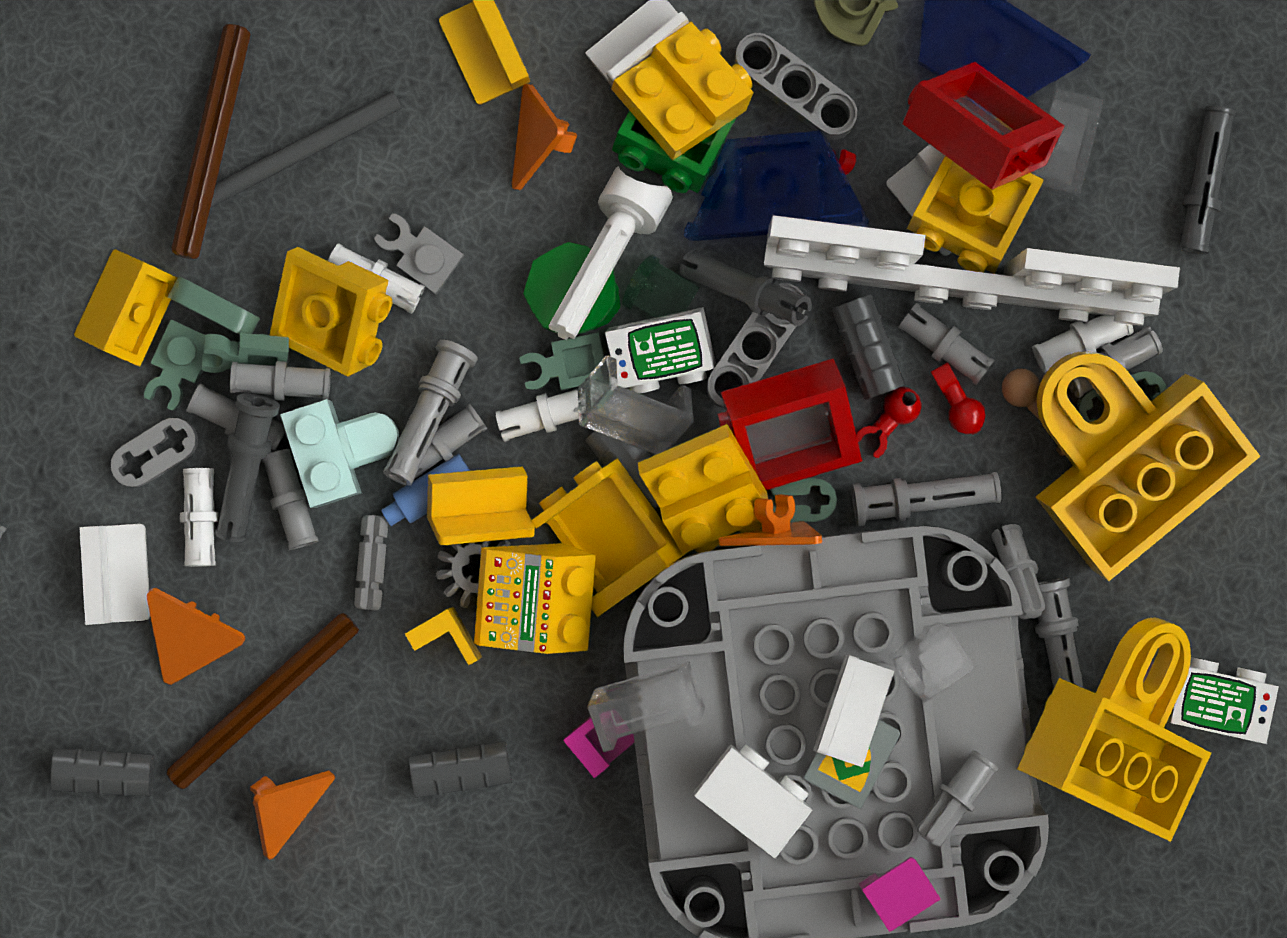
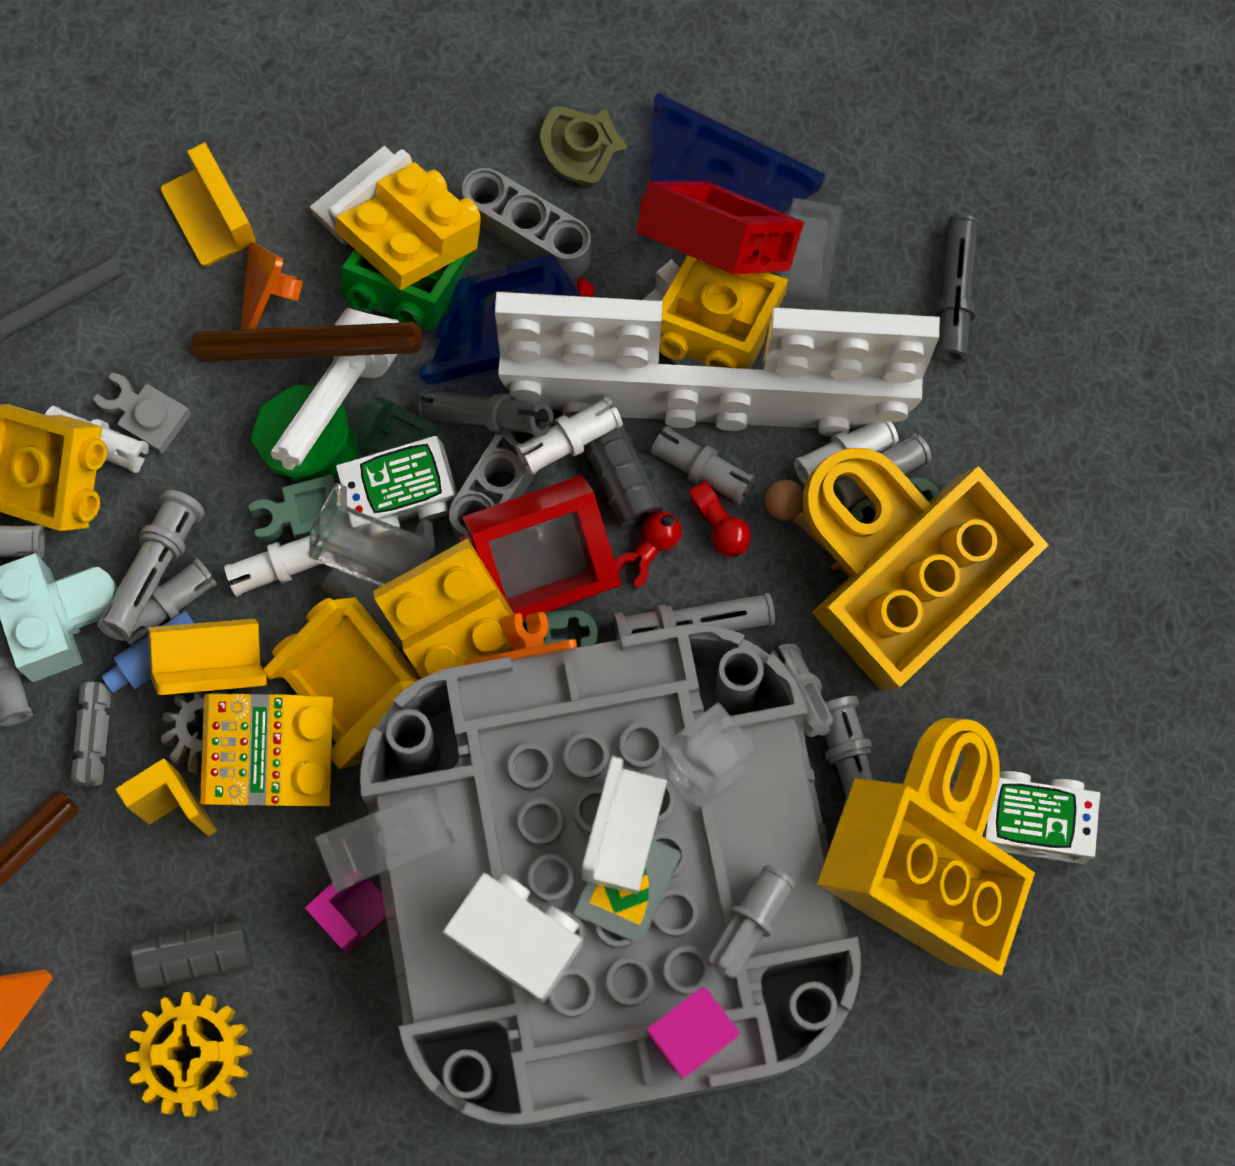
camera: 10 degrees left, 15 degrees down
(434, 856) = (188, 1081): none -> yellow gear
(581, 205) = (307, 342): none -> reddish brown axle
(825, 319) = (569, 435): none -> white pin

